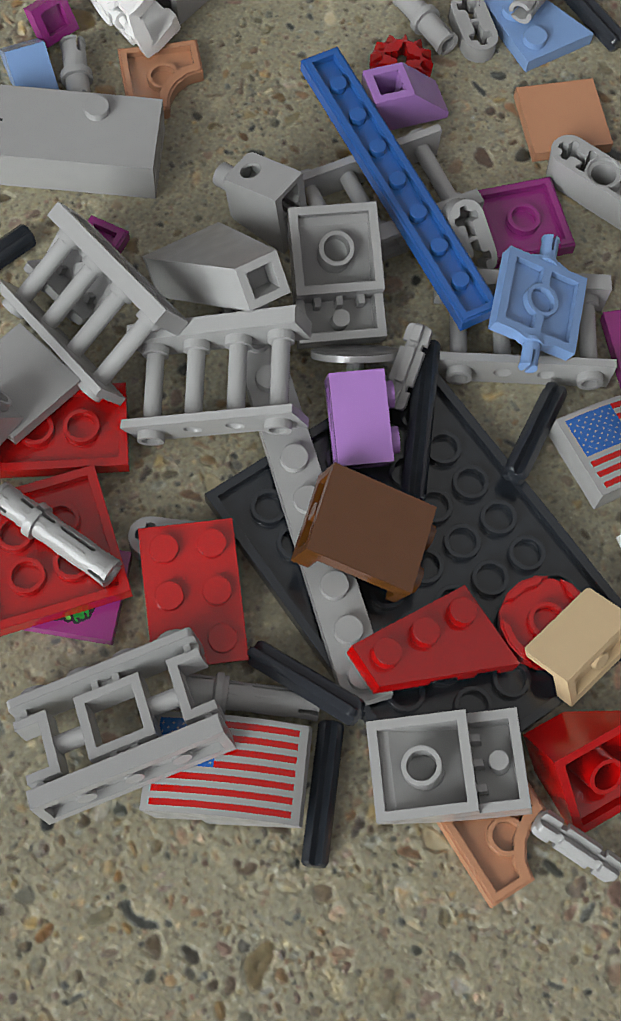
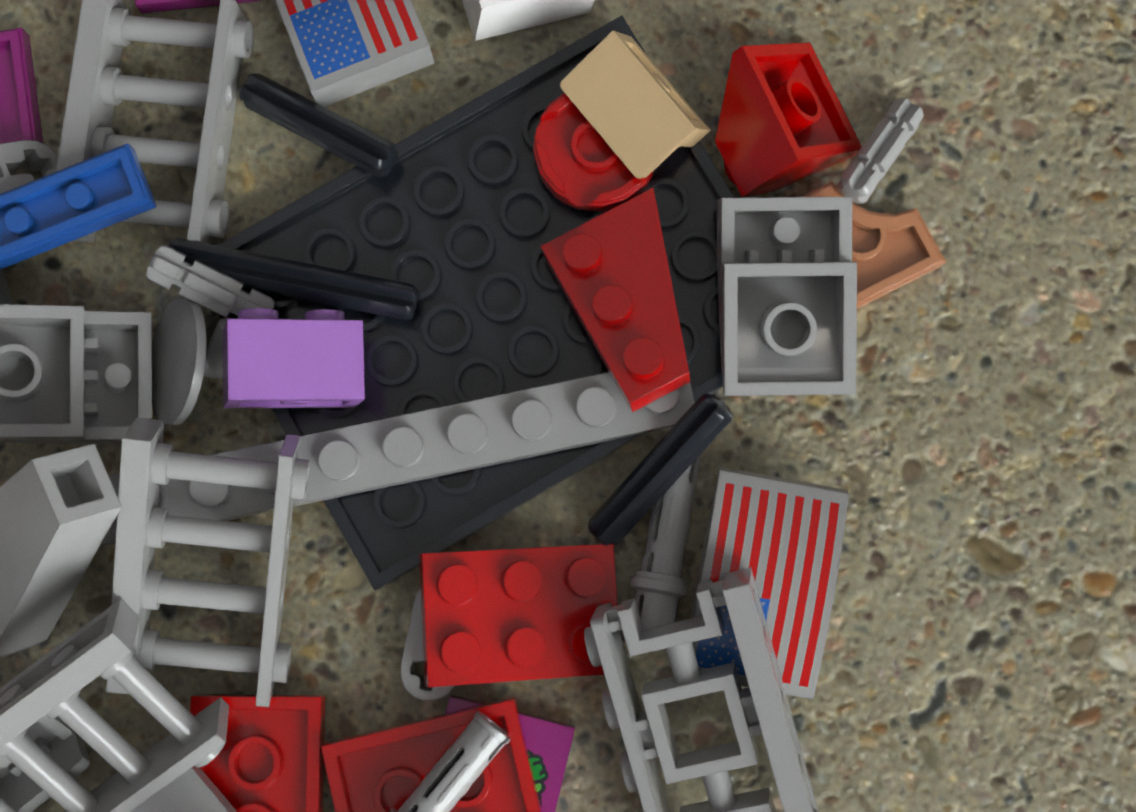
camera: 75 degrees left, 15 degrees up
(322, 794) = (798, 461): black axle -> none
(366, 531) = (464, 371): reddish brown panel -> none
(538, 303) = (129, 89): medium blue plate -> none

